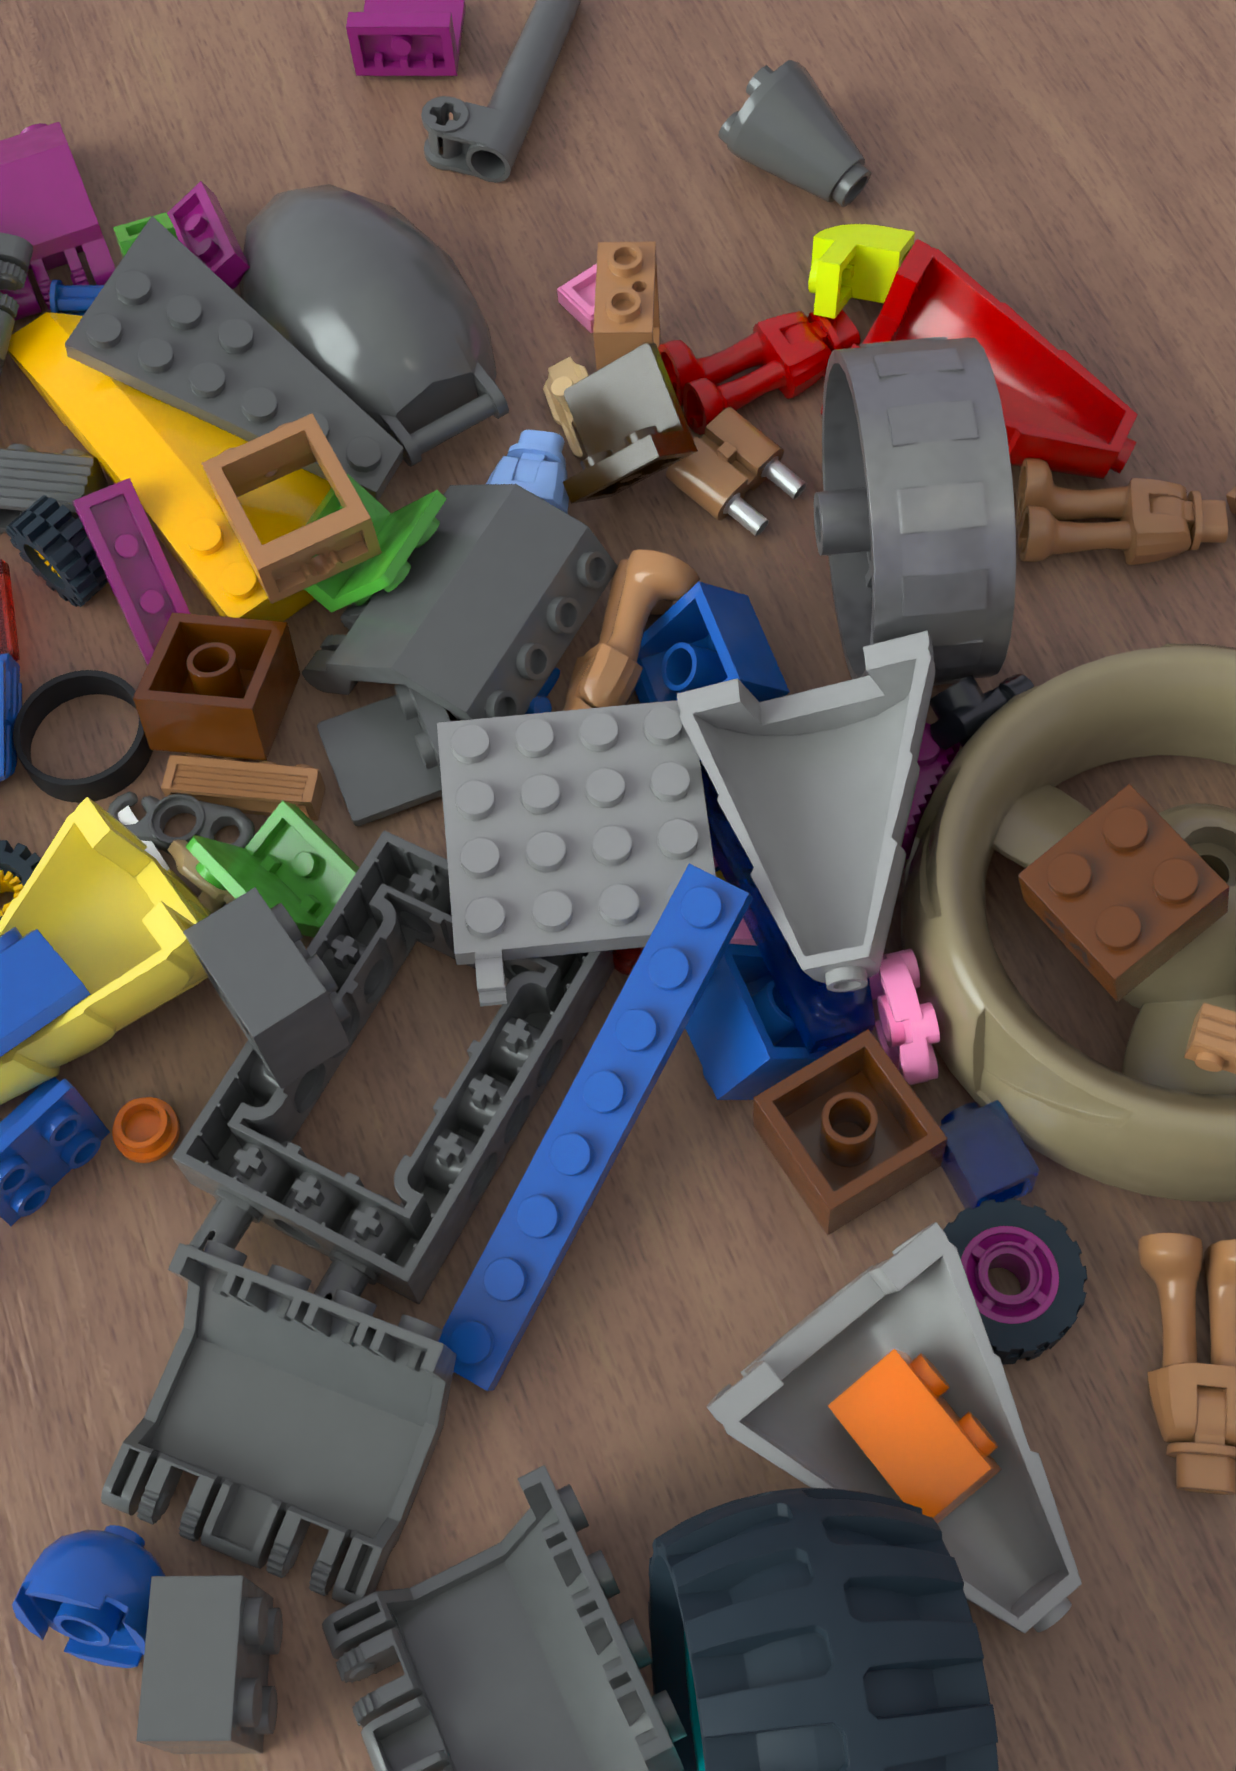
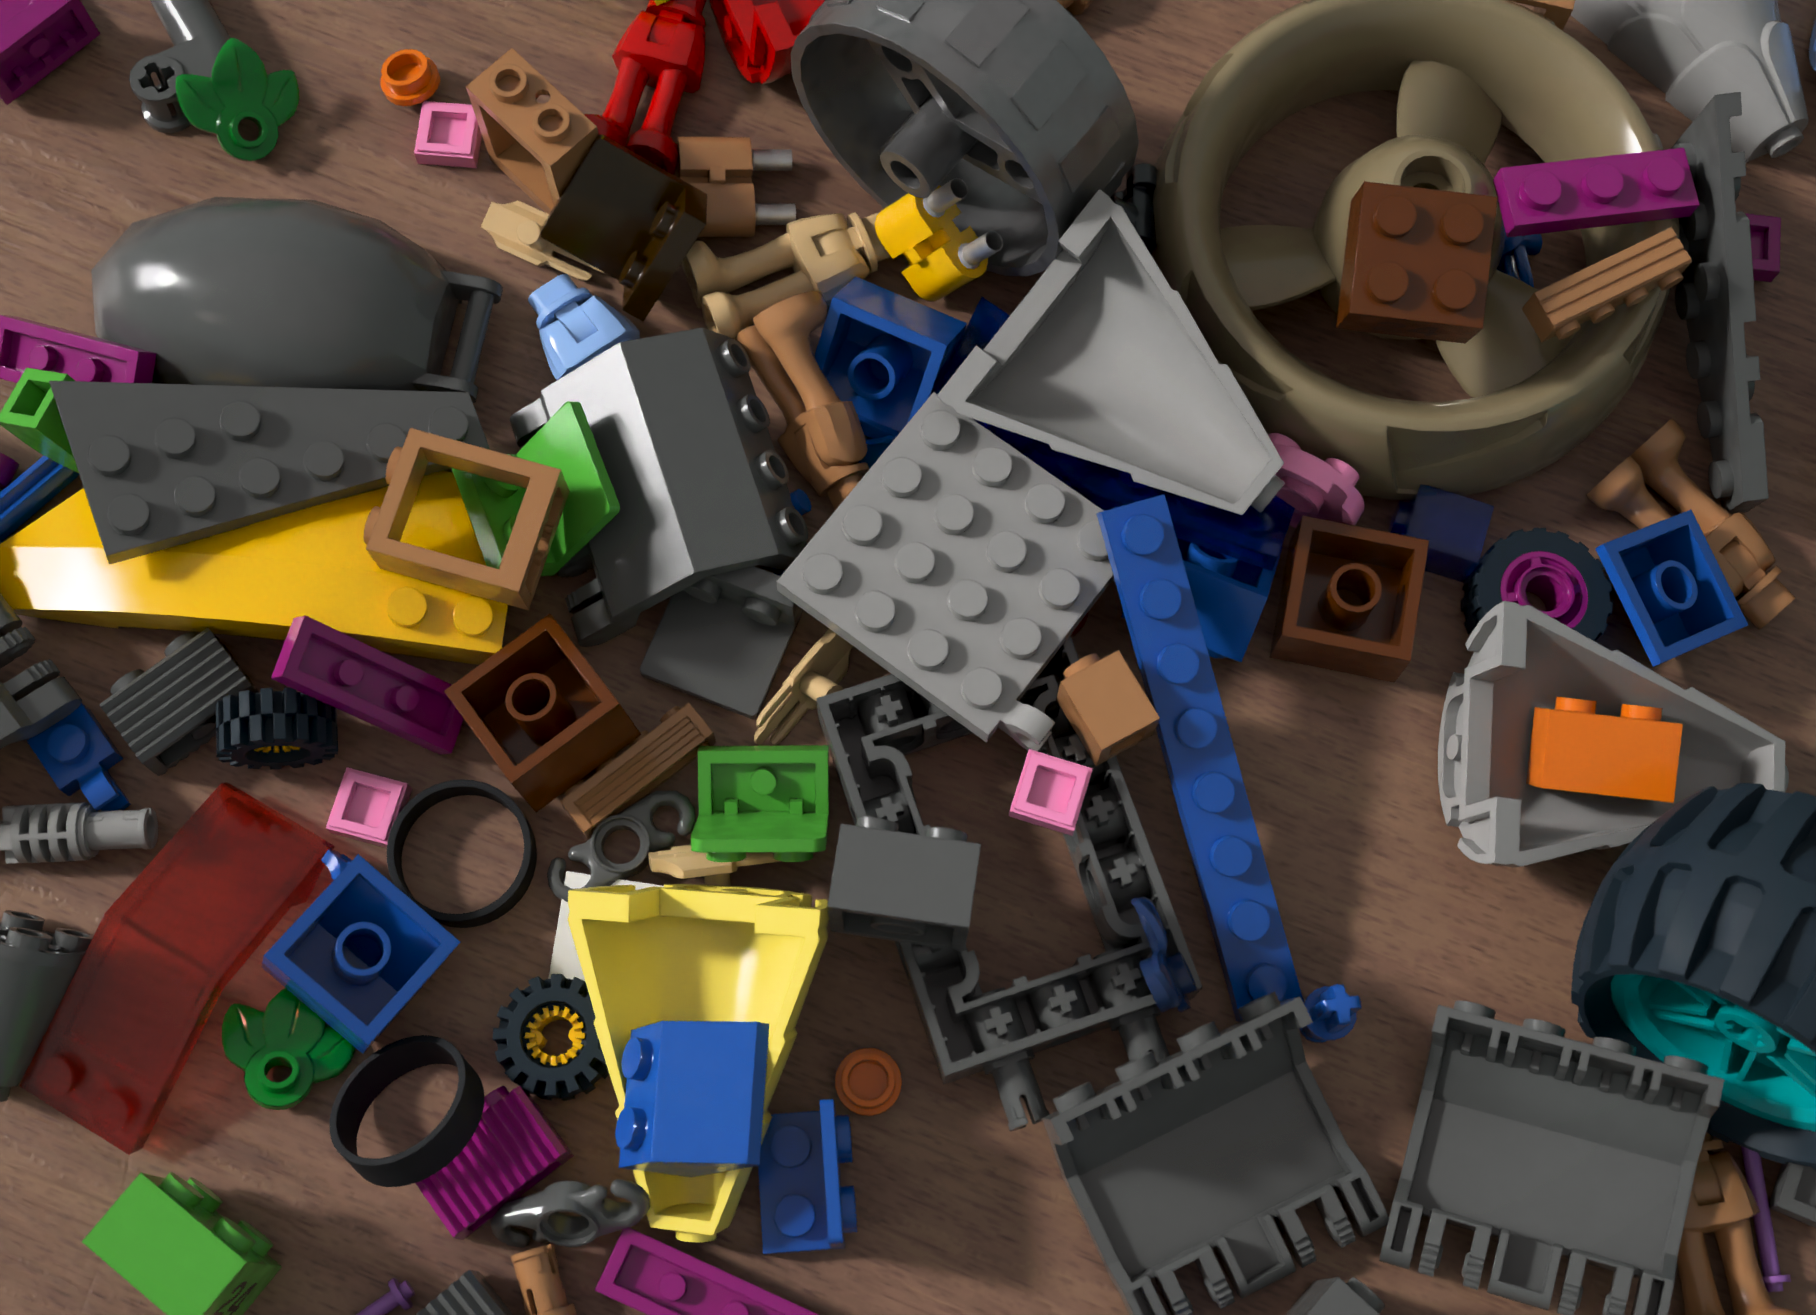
camera: 55 degrees left, 10 degrees up
(67, 652) = (367, 807): none -> bright pink tile
(376, 1227) = (1165, 975): none -> dark blue plate
(419, 827) = (811, 678): none -> tan piece
(458, 1039) = (1050, 792): none -> bright pink tile
(484, 1406) = (1331, 1013): none -> blue axle
(486, 161) = (239, 92): none -> green plate
(556, 1014) = (1106, 705): none -> medium nougat brick
(603, 230) = (409, 77): none -> orange plate
(744, 556) = (820, 248): none -> tan piece
(820, 603) = (931, 242): none -> yellow piece
(1105, 1363) = (1671, 587): none -> blue slope

